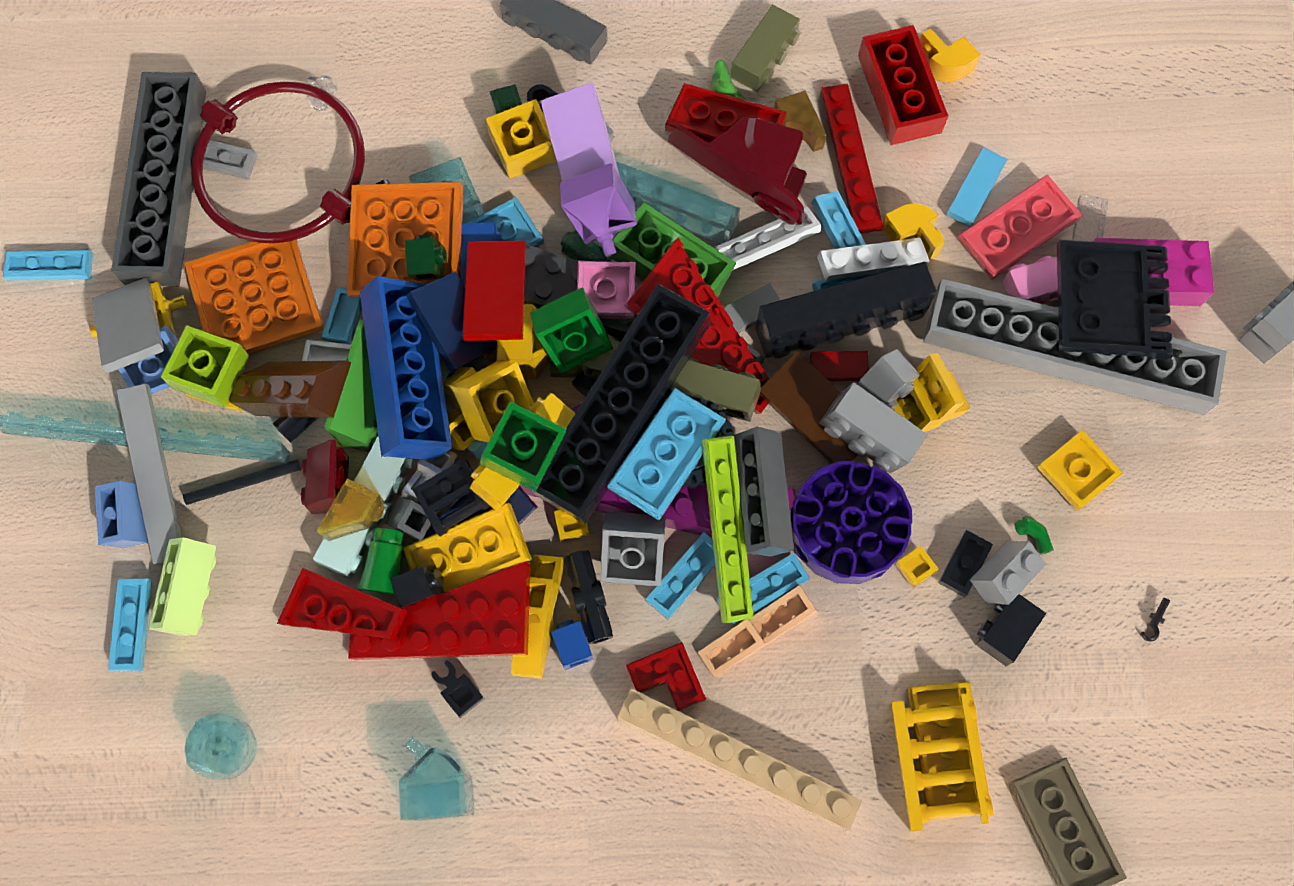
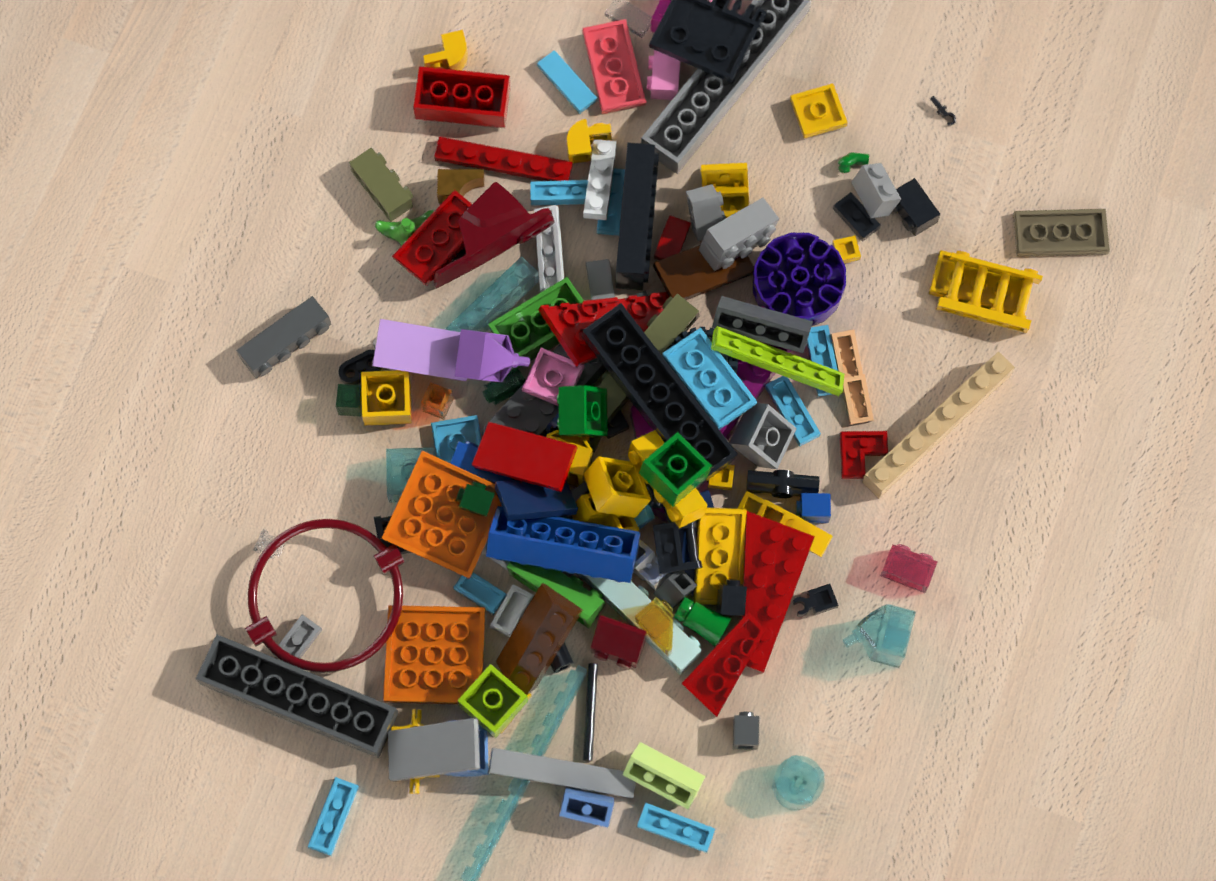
camera: 70 degrees left, 0 degrees up
(267, 663) = (746, 731): none -> dark grey brick
(538, 189) = (437, 401): none -> clear orange brick
(538, 788) = (909, 568): none -> clear pink brick

